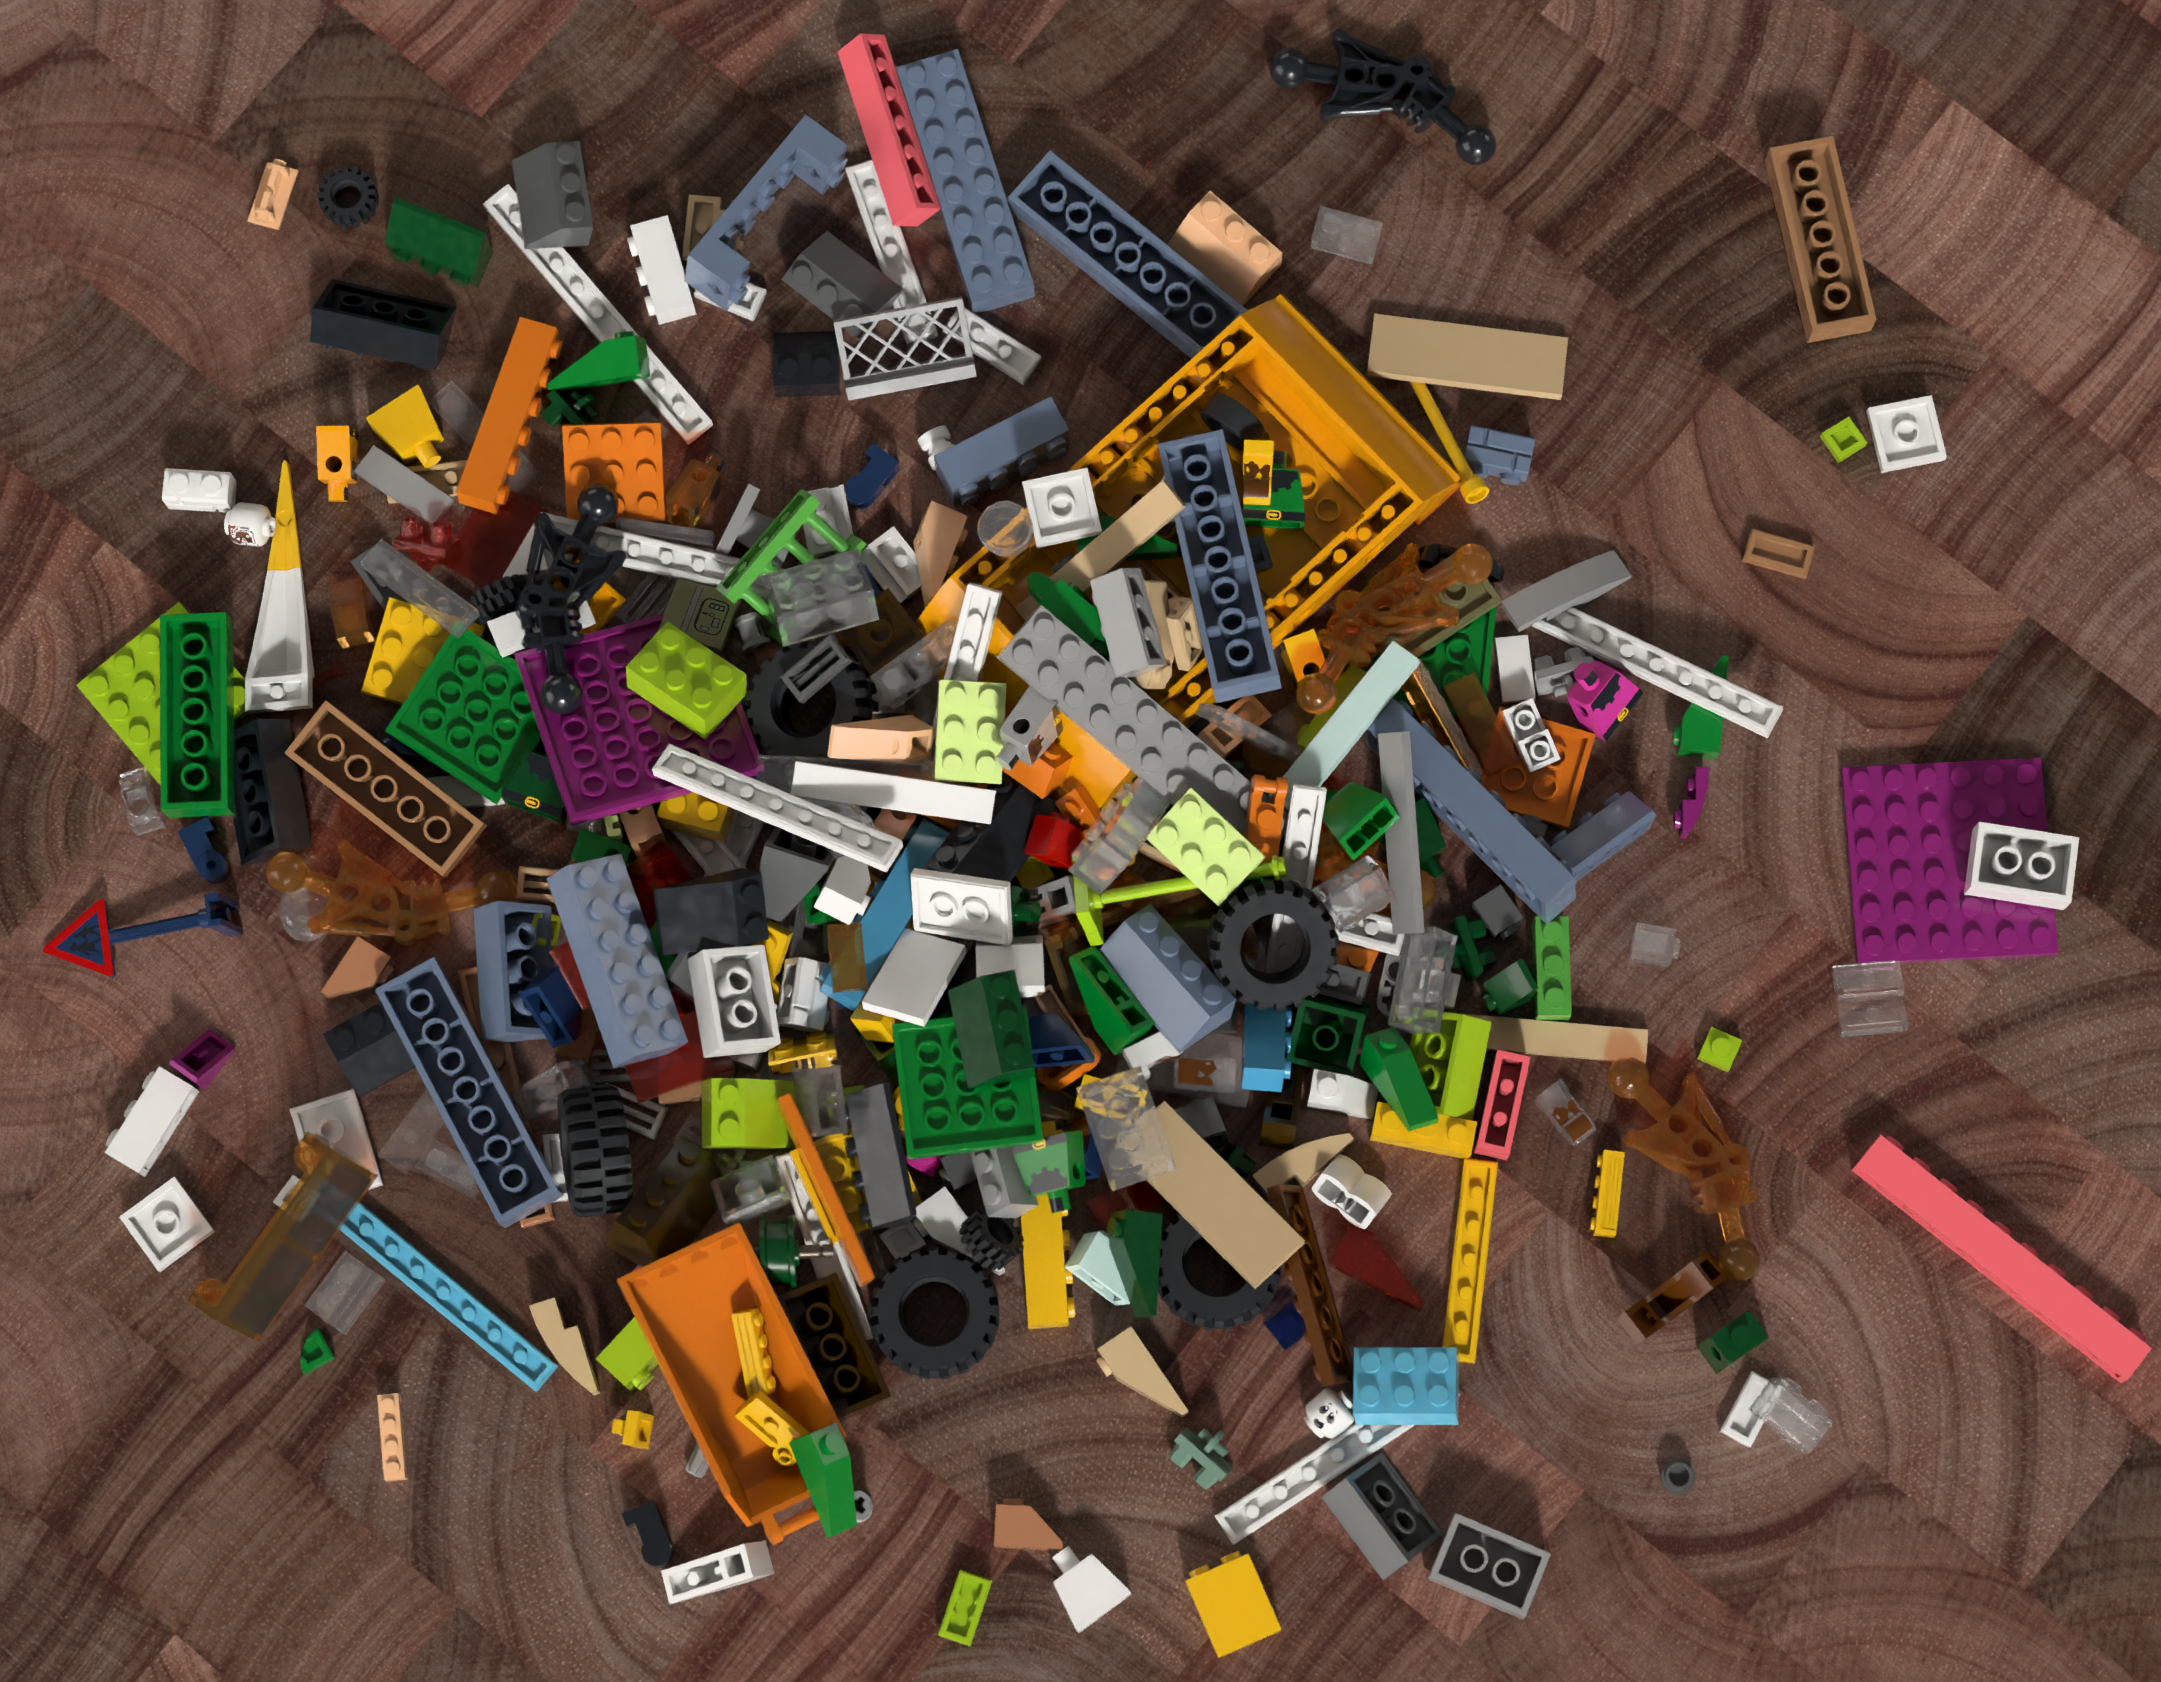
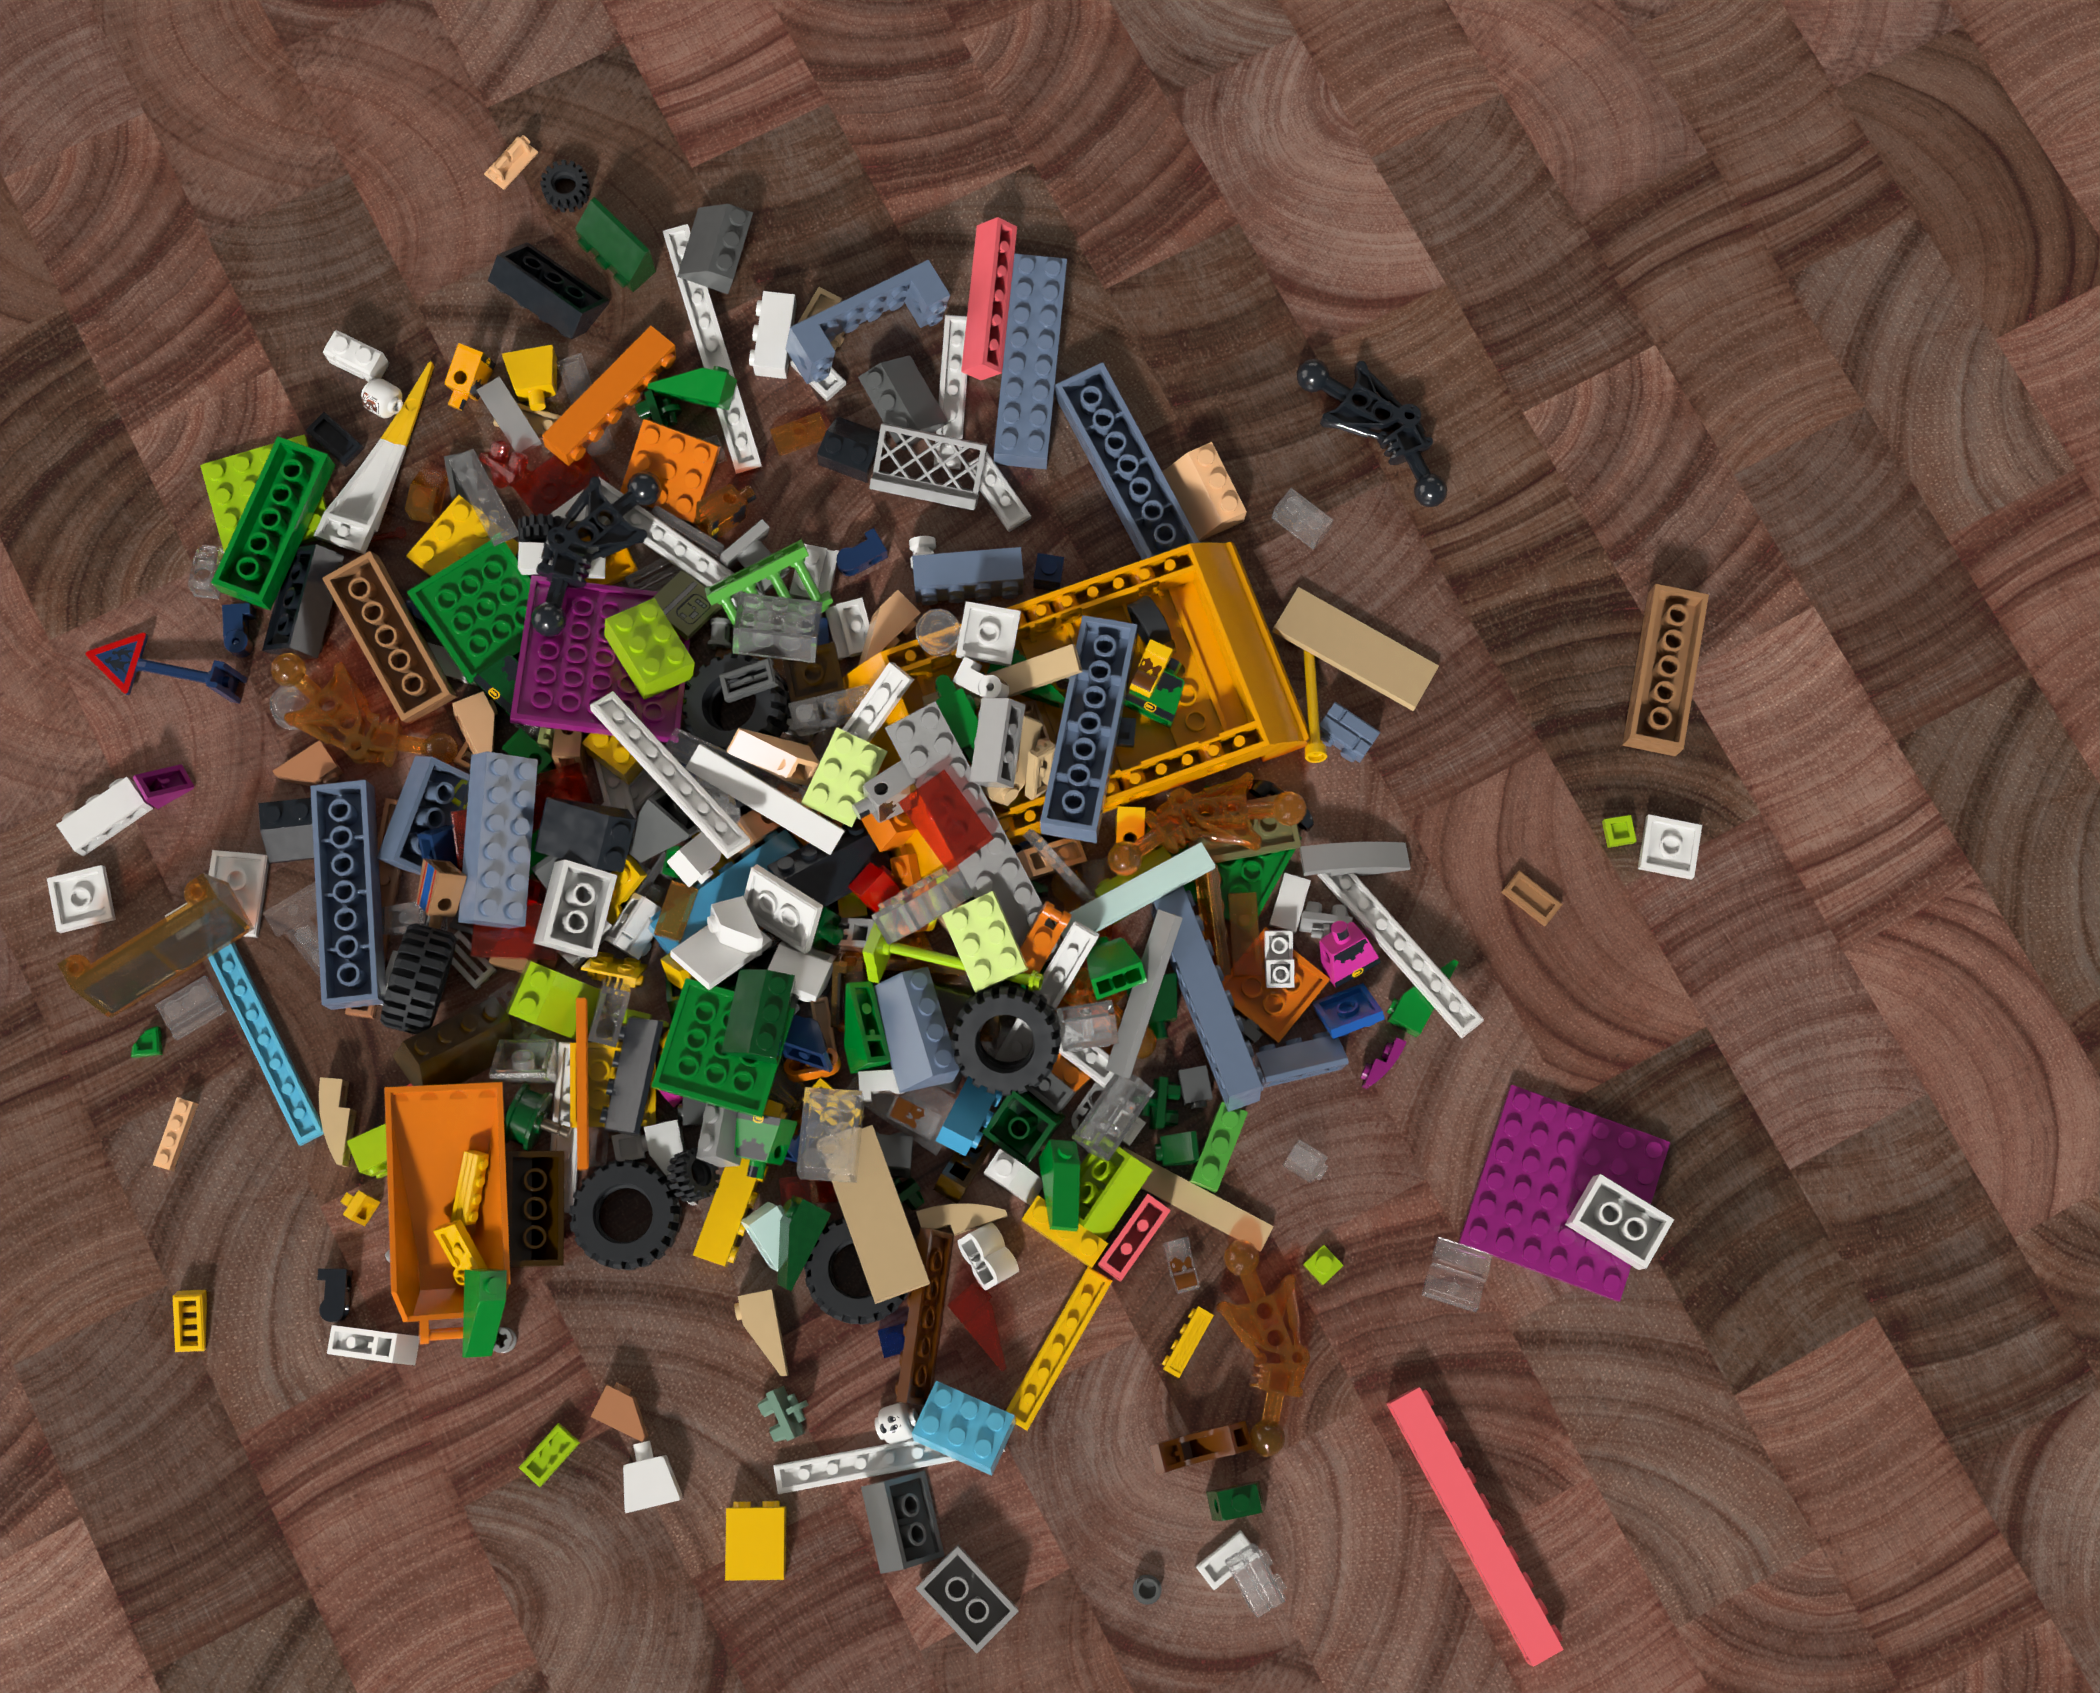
camera: 15 degrees right, 0 degrees up
(214, 593) = (334, 439): none -> black tile
(485, 1624) = (179, 1320): none -> yellow slope
(525, 845) = (477, 721): none -> light nougat slope
(576, 1042) = (439, 890): none -> medium nougat torso
(739, 370) = (798, 433): none -> clear orange plate
(921, 945) = (735, 926): none -> white slope
(1076, 566) = (985, 686): none -> white leg
(1089, 412) = (1048, 572): none -> dark blue brick
(1107, 731) = (945, 820): none -> clear red tile
(1630, 760) = (1348, 1011): none -> blue plate

